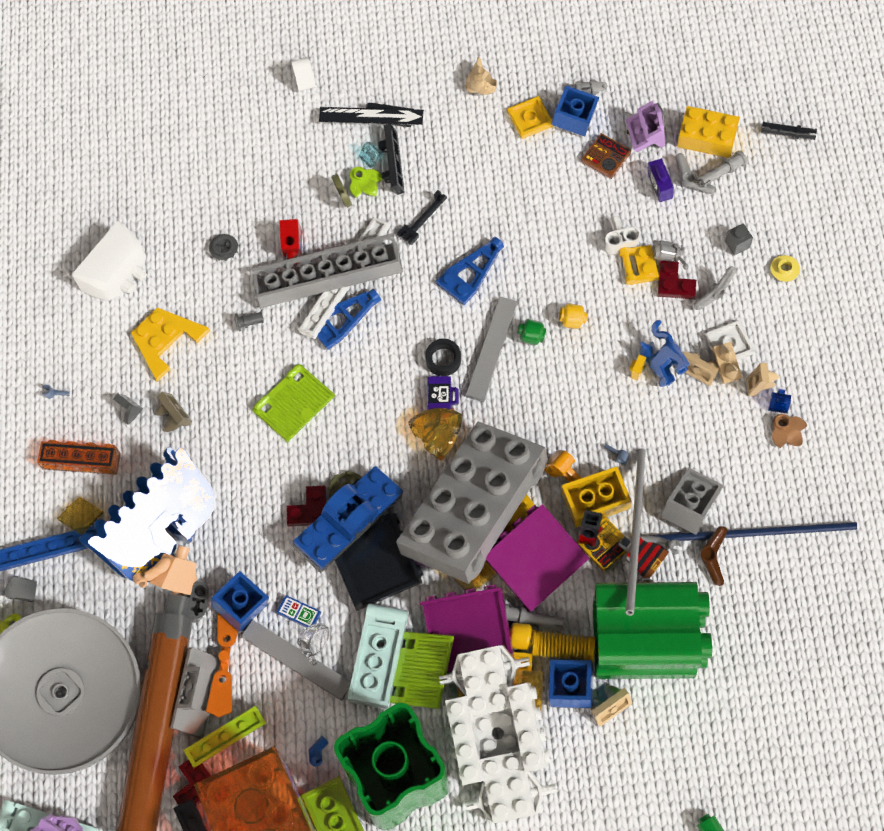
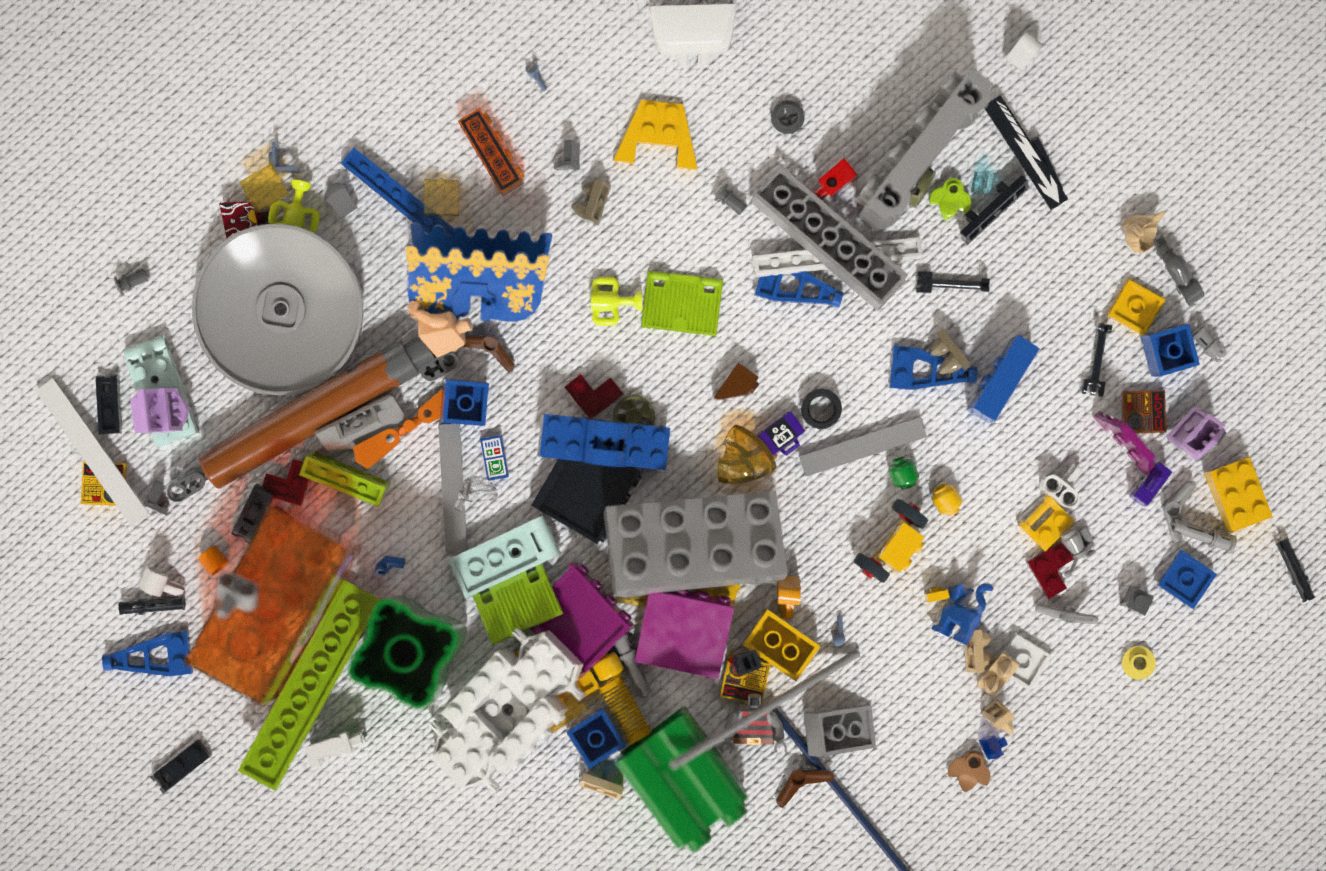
camera: 45 degrees right, 20 degrees up
(215, 554) = (490, 344): none -> reddish brown piece
(250, 449) = (610, 301): none -> neon yellow piece
(320, 191) = (959, 104): none -> light grey piece
(381, 400) = (737, 384): none -> reddish brown slope
(474, 242) = (955, 360): none -> dark tan tile
(514, 223) = (1003, 379): none -> blue brick
(526, 73) = (1180, 272): none -> dark grey piece
(561, 173) = (1094, 382): none -> black hinge
(582, 366) = (899, 546): none -> brick
(620, 165) = (1125, 435): none -> magenta wing
(746, 200) = (1186, 579): none -> blue plate

